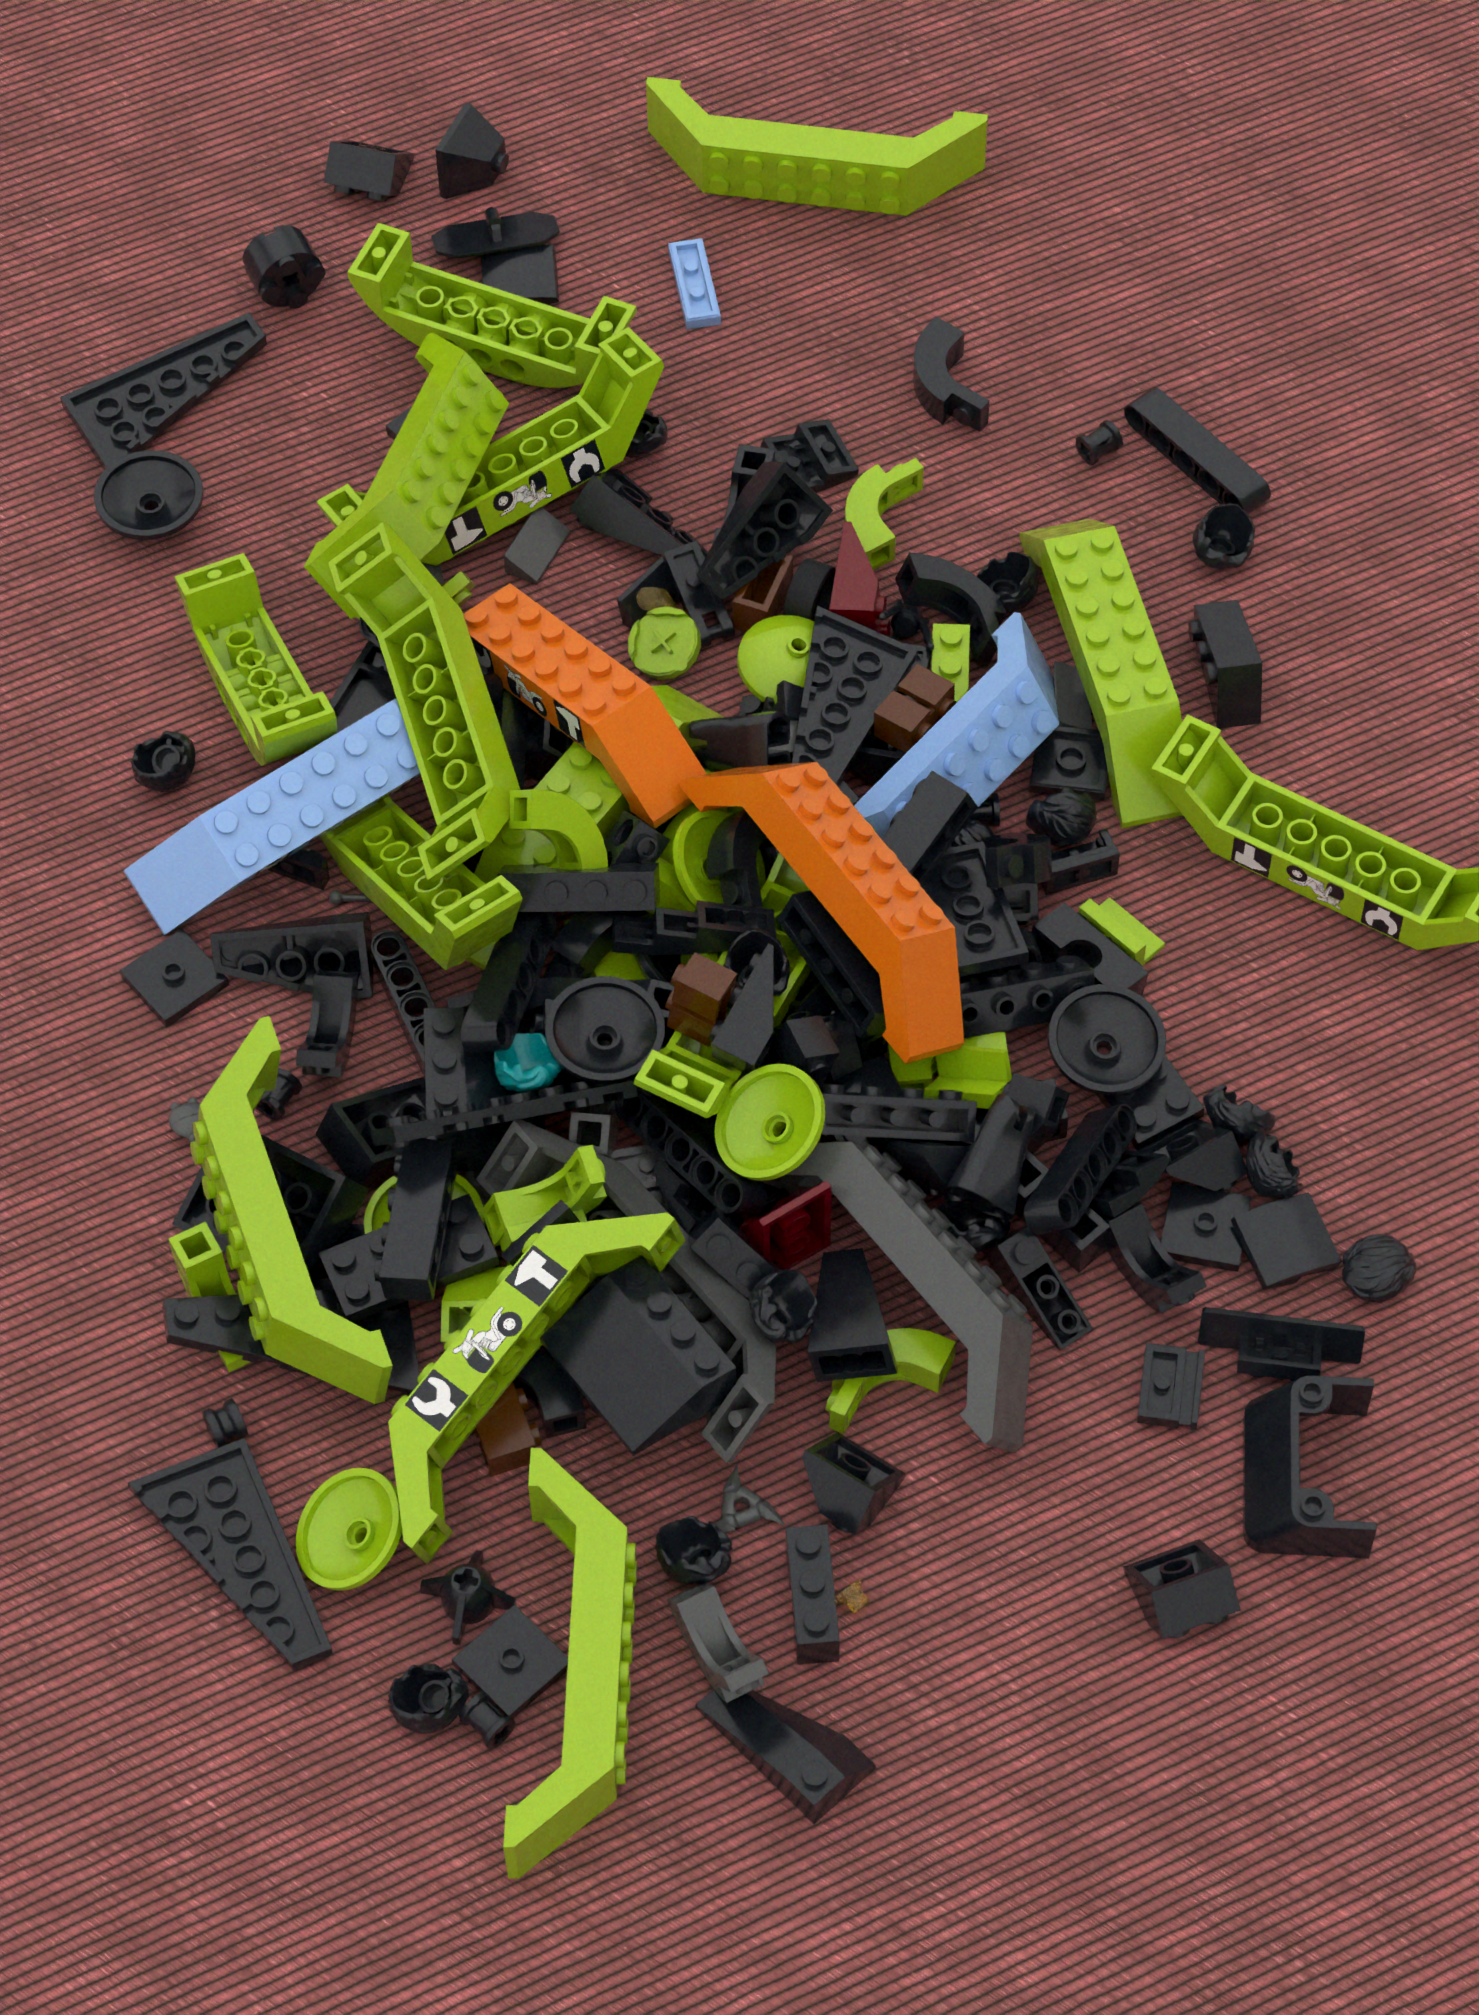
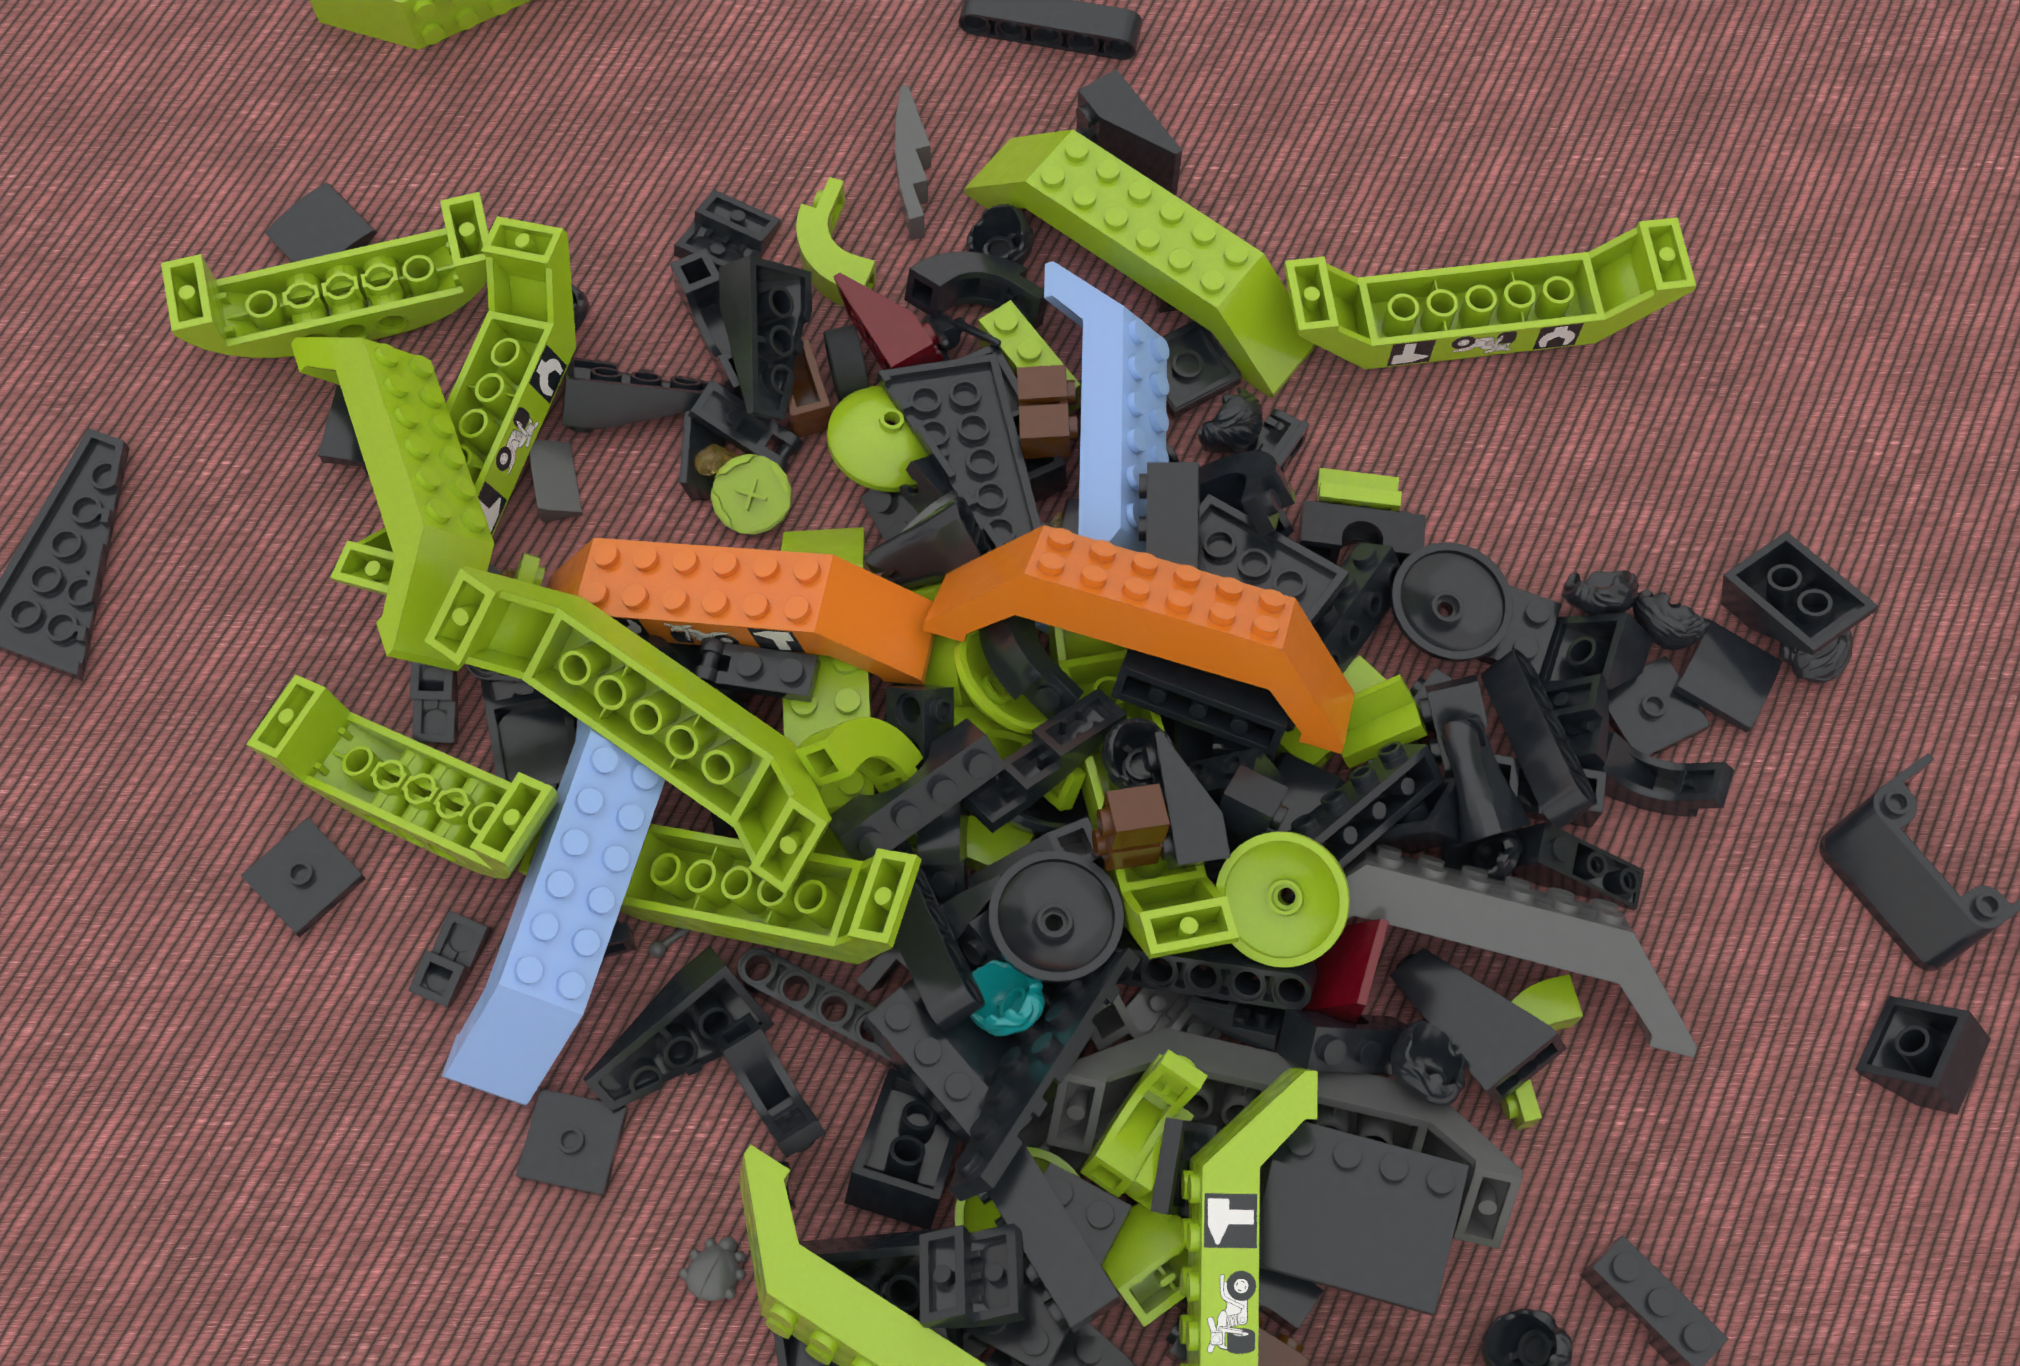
camera: 40 degrees left, 10 degrees up
(145, 695) = (303, 877): none -> black plate
(146, 482) = (132, 658): black dish -> none
(164, 761) = (382, 933): black hair -> none
(181, 810) = (451, 959): none -> black slope
(283, 267) = (88, 363): black brick -> none
(324, 639) = (434, 704): none -> black slope
(340, 1197) = (971, 1277): none -> black slope
(367, 168) = (86, 216): black slope -> none
(469, 154) = (179, 142): black slope -> none
(495, 234) = (263, 205): black shield -> none
(544, 740) = (758, 670): none -> black plate
(694, 283) = (485, 139): light blue tile -> none
(757, 1507) = (1528, 1256): dark grey piece -> none
(849, 1482) = (1591, 1171): black slope -> none
(853, 1596) = (1678, 1275): clear yellow piece -> none
(939, 394) = (779, 99): black arch -> none
(995, 482) = (911, 156): none -> dark grey slope
(1070, 697) = (1135, 300): dark grey slope -> none
(1099, 442) = (963, 64): black bush -> none
(1169, 560) = (1125, 127): none -> black slope
(1170, 1386) = (1754, 876): black plate -> none
(1224, 537) = (1146, 76): black hair -> none
(1228, 663) = (1241, 190): black wedge -> none
(1280, 1344) = (1807, 775): black bracket -> none
(1381, 1206) = (1793, 596): none -> black slope

